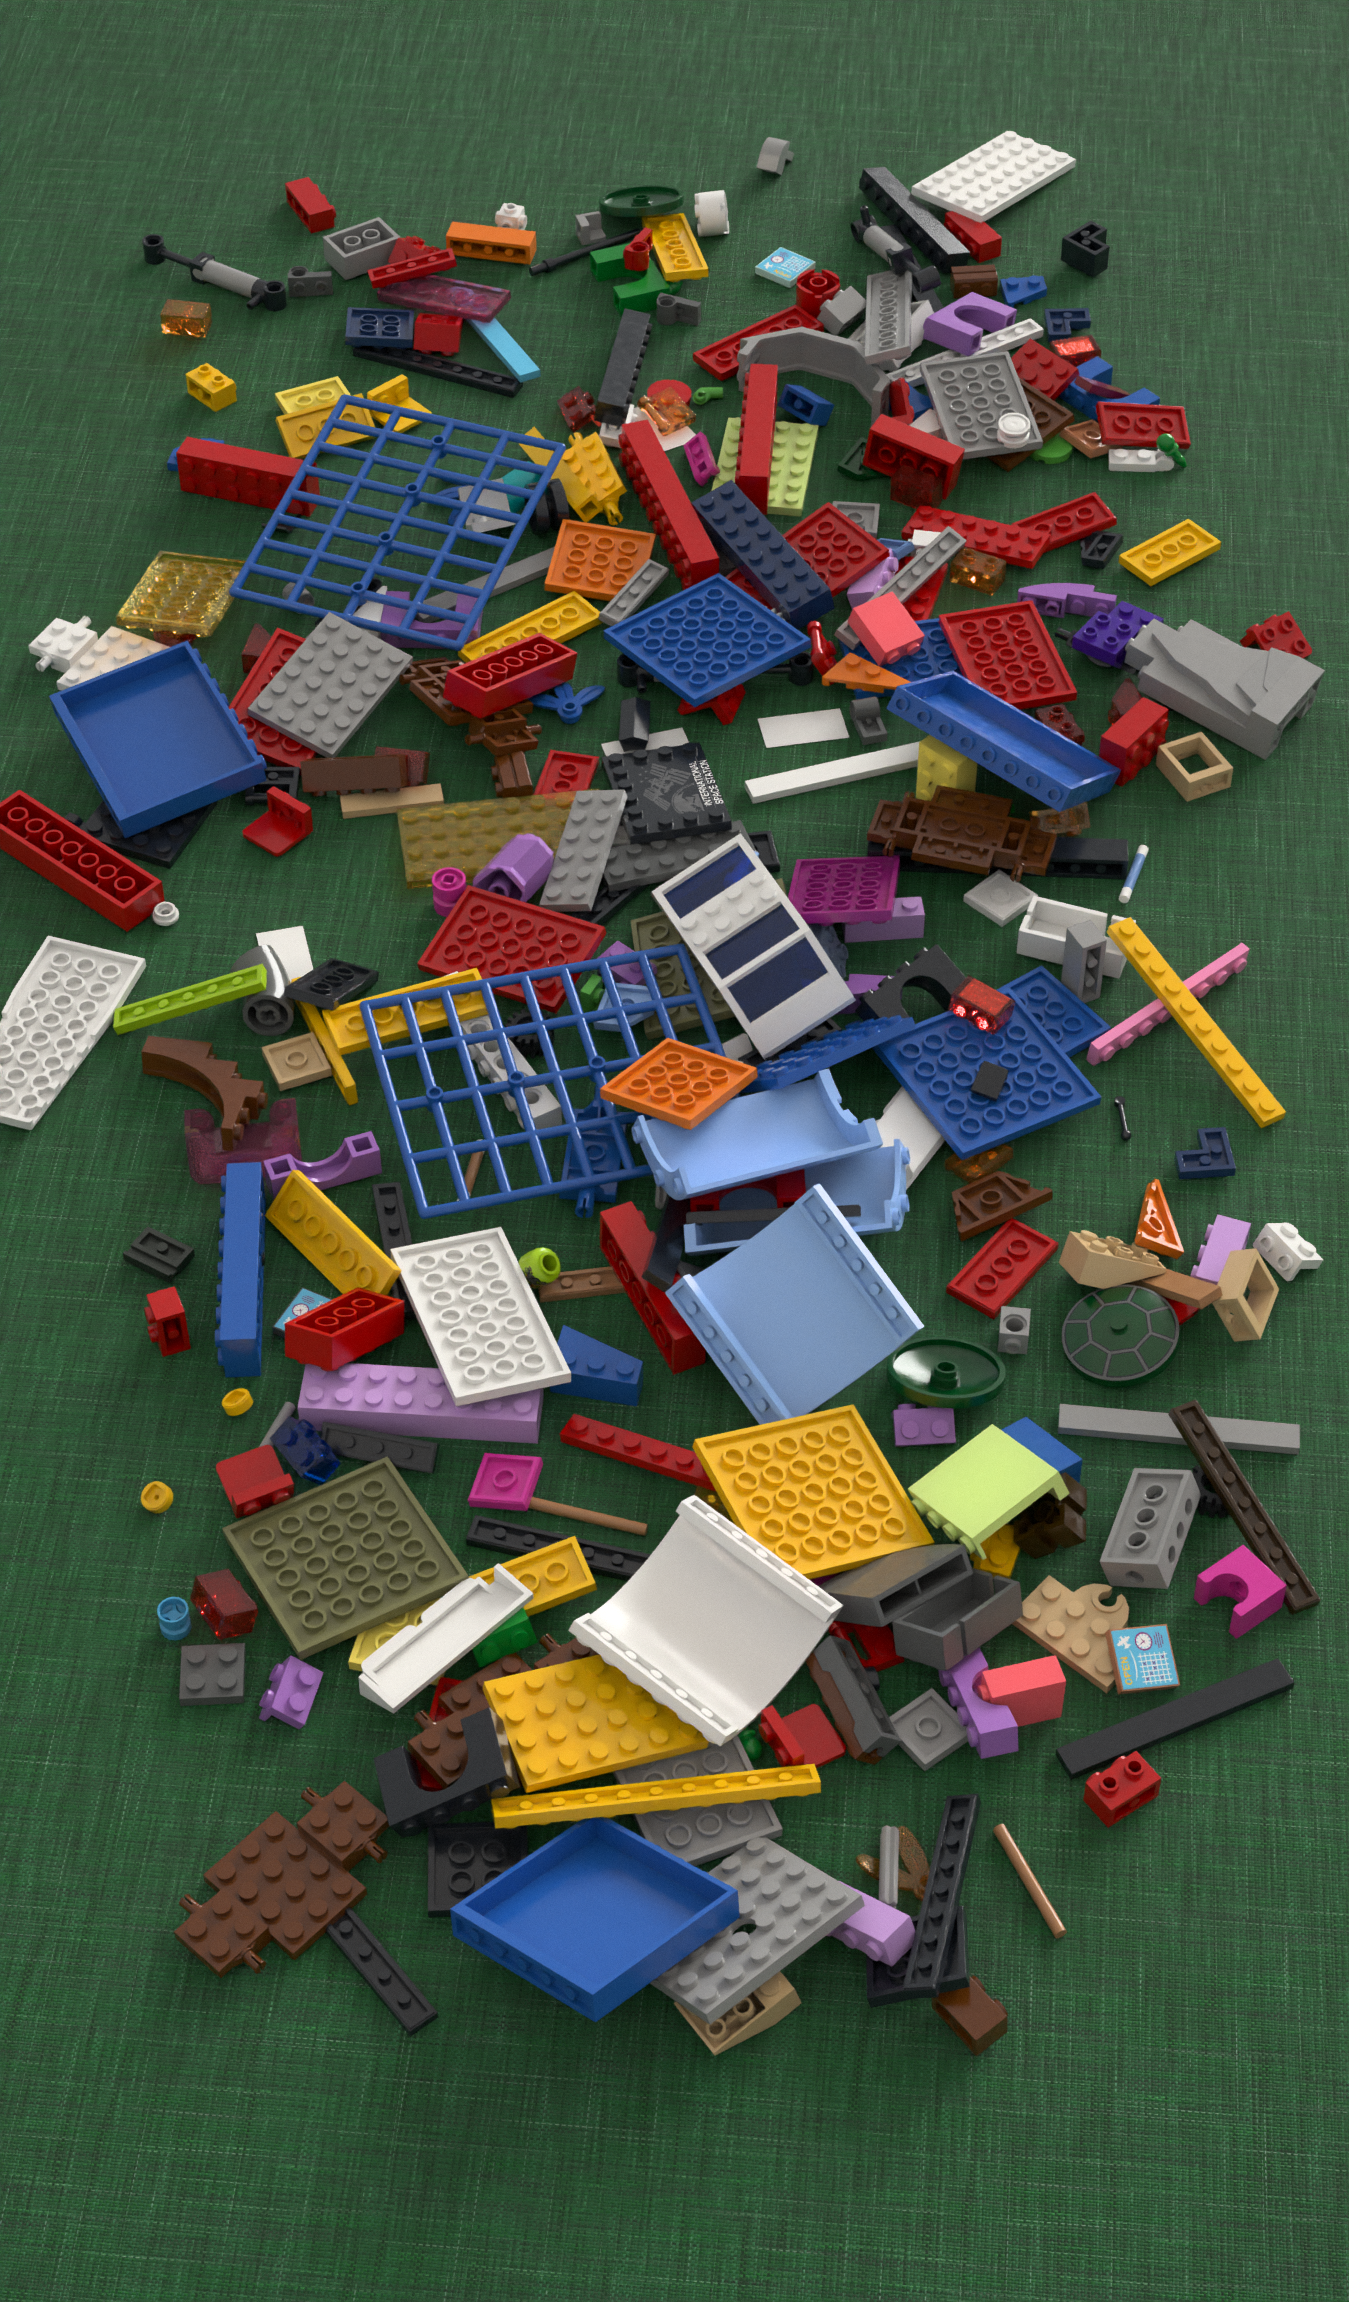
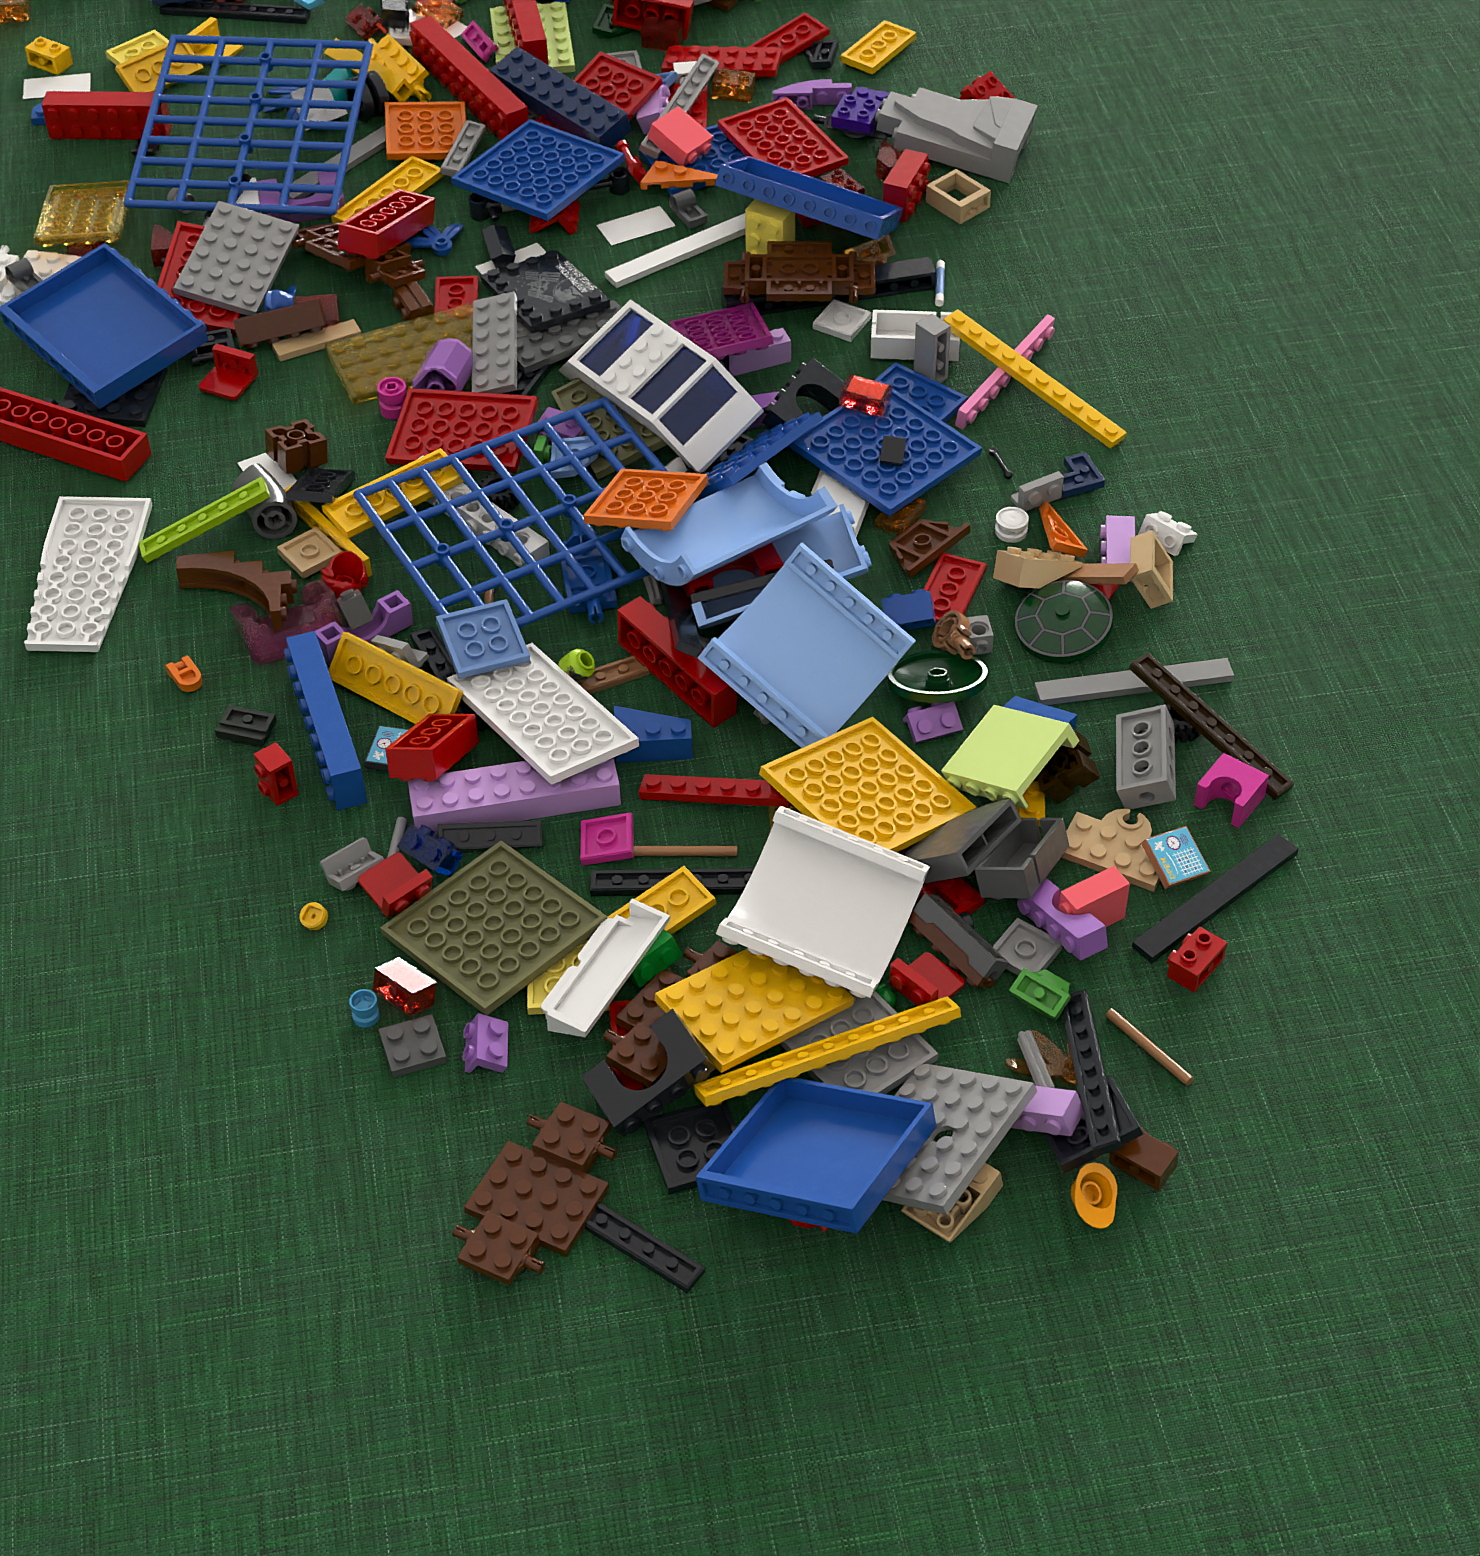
camera: 15 degrees left, 0 degrees up
(91, 659) = (22, 275): none -> dark grey plate
(114, 1178) = (185, 674): none -> orange plate
(165, 914) = (155, 461): white plate -> none
(209, 425) = (38, 86): none -> white sticker
(214, 1444) = (349, 863): none -> light grey bracket
(237, 1402) = (356, 826): yellow tile -> none
(317, 1143) = (354, 608): none -> dark grey slope
(322, 929) = (296, 446): none -> reddish brown brick
(322, 1100) = (345, 573): none -> red hair
(354, 1207) = (401, 650): none -> light grey bracket
(362, 744) = (279, 299): none -> blue piece
(442, 1212) = (482, 639): none -> medium blue plate
(896, 2043) = (1095, 1195): none -> light orange piece
(927, 1783) = (1042, 992): none -> bright green slope
(941, 1284) = (910, 610): none -> blue brick
(981, 1323) = (956, 639): none -> medium nougat pin
(1105, 1200) = (1011, 524): none -> white wheel
(1149, 1166) = (1037, 491): none -> light grey bracket

